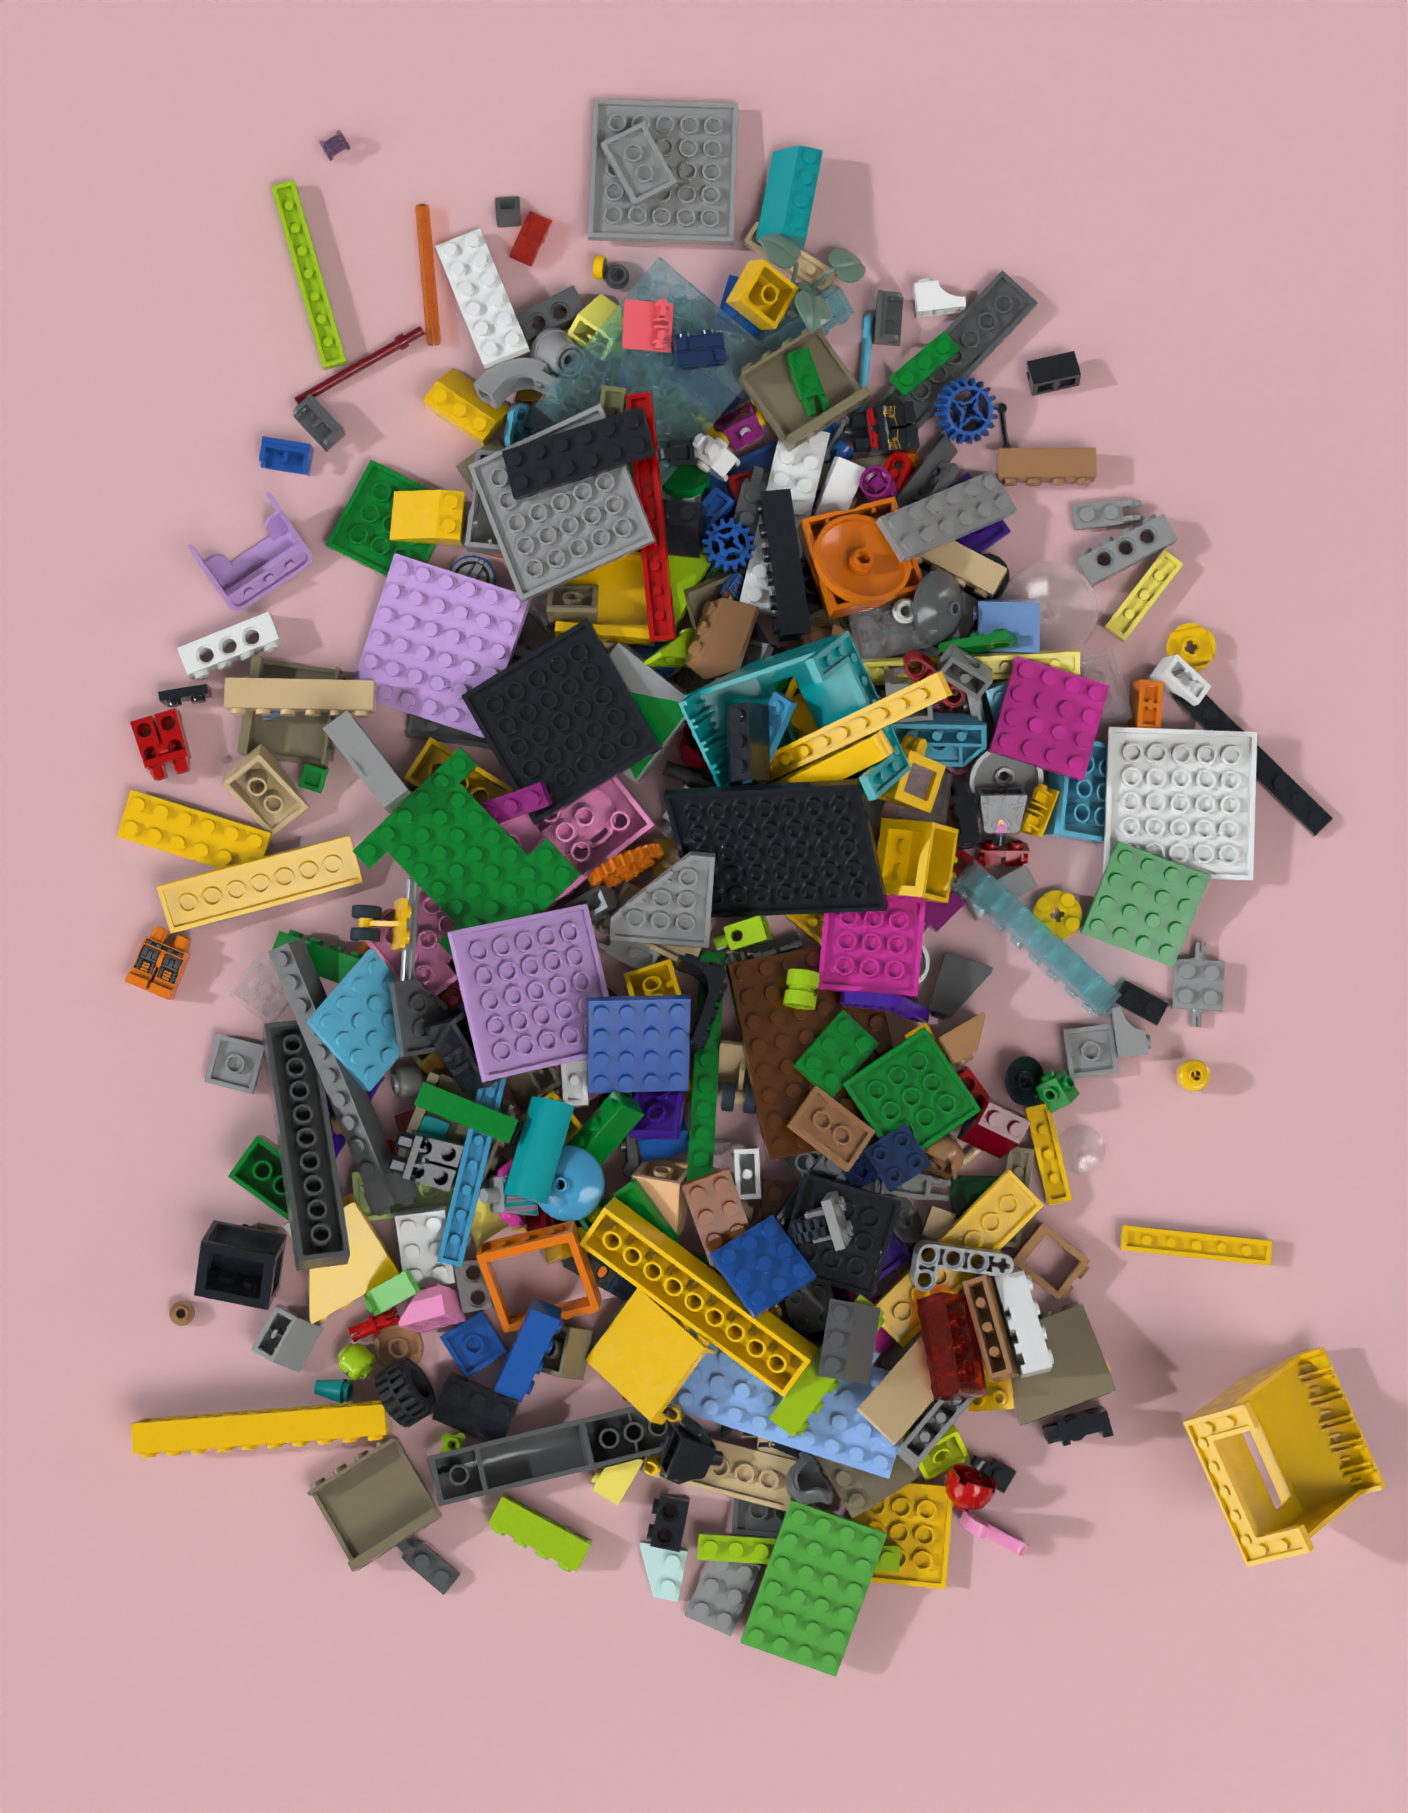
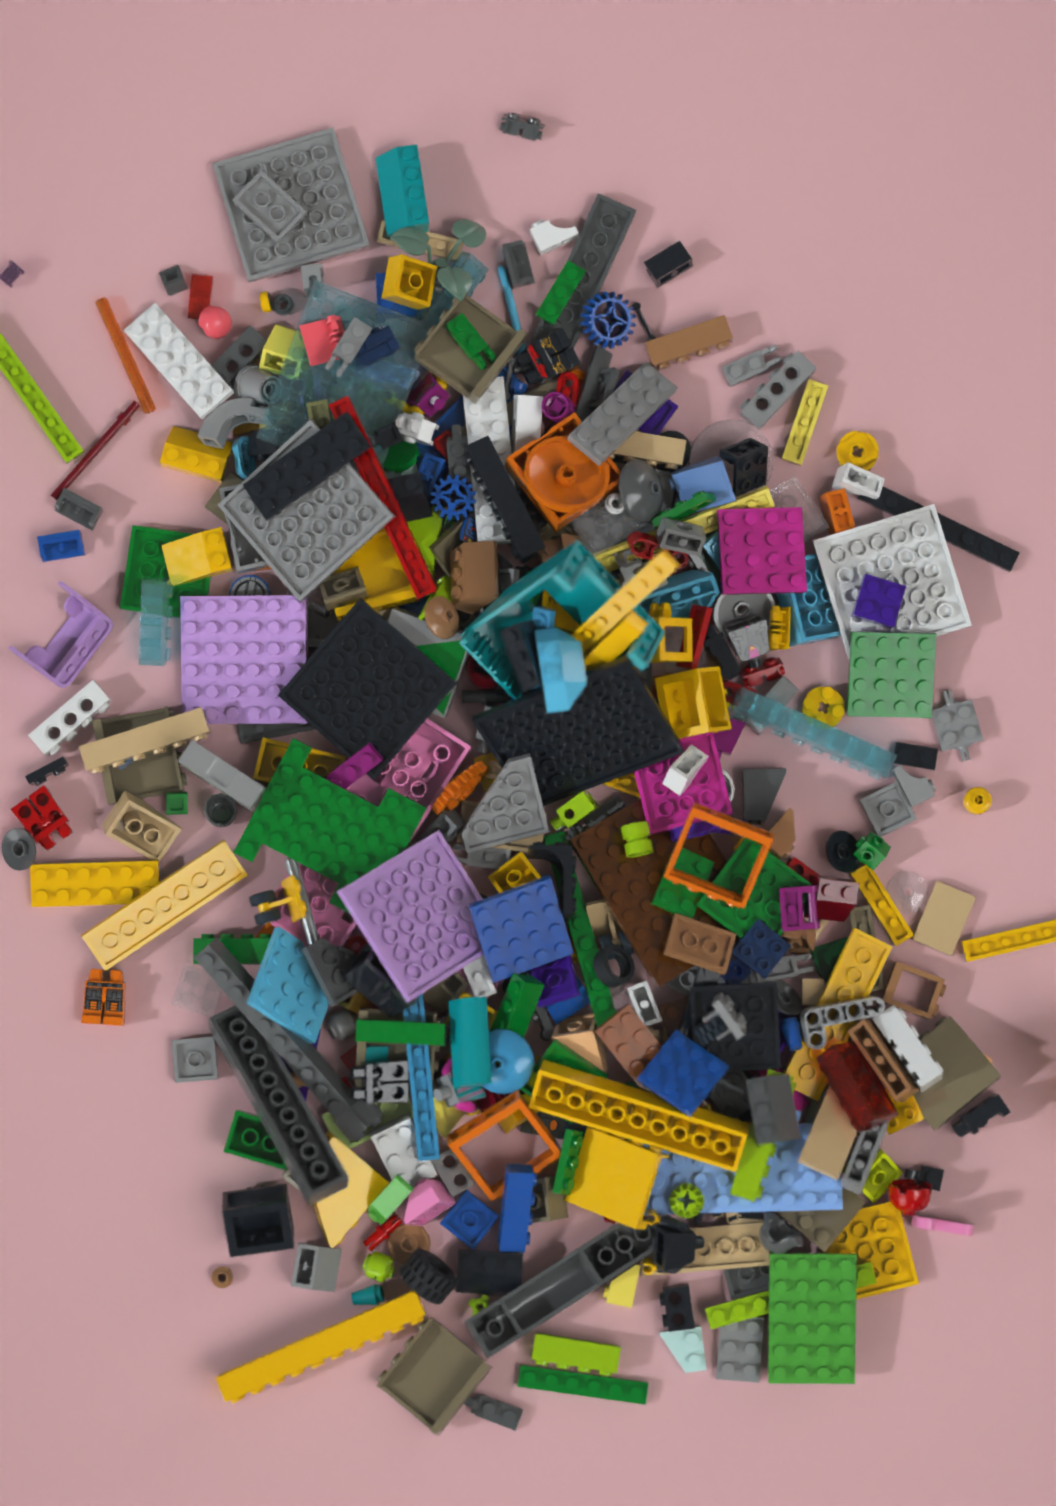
camera: 25 degrees left, 0 degrees up
(124, 768) = (19, 849): none -> dark grey dish
(357, 571) = (154, 621): none -> clear light blue brick
(357, 801) = (220, 810): none -> dark grey hair
(535, 1570) = (583, 1384): none -> green plate
(537, 270) = (215, 322): none -> coral hair
(602, 1319) = (568, 1161): none -> green plate
(656, 248) = (310, 274): none -> light grey hinge
(669, 670) = (441, 617): none -> medium nougat dish
(671, 337) = (349, 344): none -> light grey hinge
(714, 1123) = (603, 970): none -> black tyre
(722, 1420) = (693, 1208): none -> lime gear
(779, 769) = (560, 668): none -> medium azure wedge
(880, 930) = (685, 769): none -> white arch
(899, 1263) = (792, 1033): none -> blue cone
(914, 1010) = (729, 823): none -> orange window
(947, 1124) = (792, 910): none -> magenta plate
(952, 175) = (514, 123): none -> dark grey hinge
(954, 772) = (700, 621): none -> red plate
(1067, 619) = (749, 464): none -> black bracket
(1111, 1192) = (943, 918): none -> tan tile
(1159, 817) = (878, 601): none -> dark purple brick

